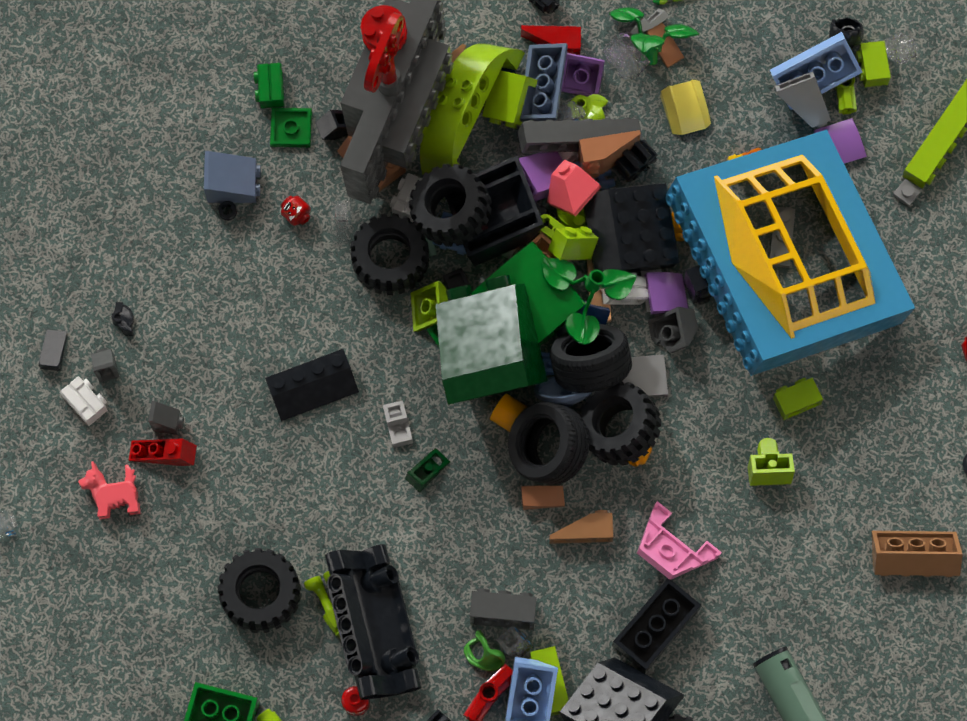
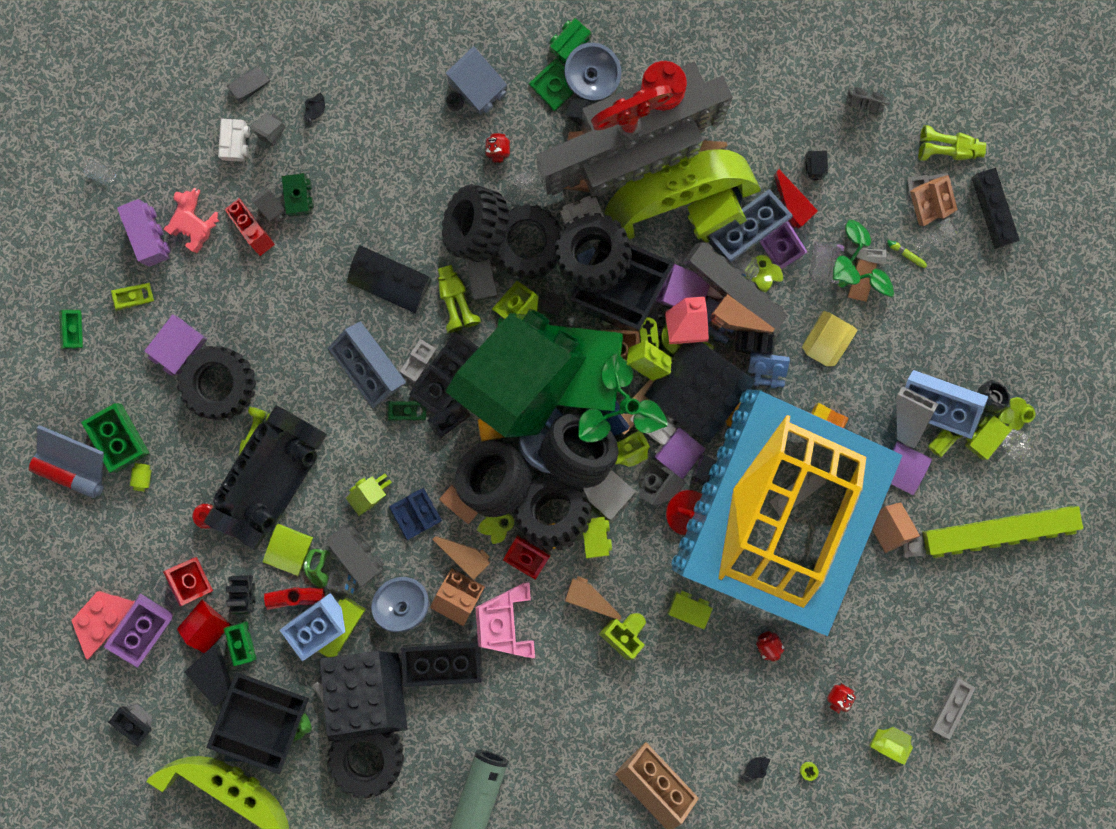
camera: 45 degrees right, 15 degrees up
(85, 533) = (144, 232): none -> medium lavender brick
(97, 670) = (70, 329): none -> green slope
(121, 597) = (131, 296): none -> lime slope
(176, 392) = (297, 194): none -> dark green brick
(196, 597) = (174, 345): none -> medium lavender brick
(311, 79) = (599, 61): none -> sand blue dish
(356, 268) = (475, 223): none -> black tyre
(361, 464) = (366, 364): none -> sand blue slope
(367, 345) = (453, 288): none -> lime piece
(384, 314) = (483, 280): none -> dark grey brick
(429, 411) = (439, 374): none -> black slope
(446, 664) = (287, 549): none -> lime slope
(464, 556) = (367, 493): none -> lime brick
(466, 442) = (448, 419): none -> black slope
(515, 539) = (415, 514): none -> dark blue slope
(571, 606) = (393, 597): none -> sand blue dish
(585, 488) = (493, 527): none -> lime plate
(615, 566) = (457, 597): none -> nougat slope
(631, 323) = (633, 449): none -> lime slope
(634, 482) = (526, 557): none -> red slope
(663, 166) = (768, 365): none -> medium blue plate
(673, 417) = (596, 539): none -> lime brick
(713, 332) = (681, 510): none -> red shield
(713, 465) = (588, 597): none -> medium nougat slope
(876, 26) = (1017, 413): none -> lime plate
(879, 191) = (894, 527): none -> nougat slope
(884, 365) = (770, 646): none -> red head

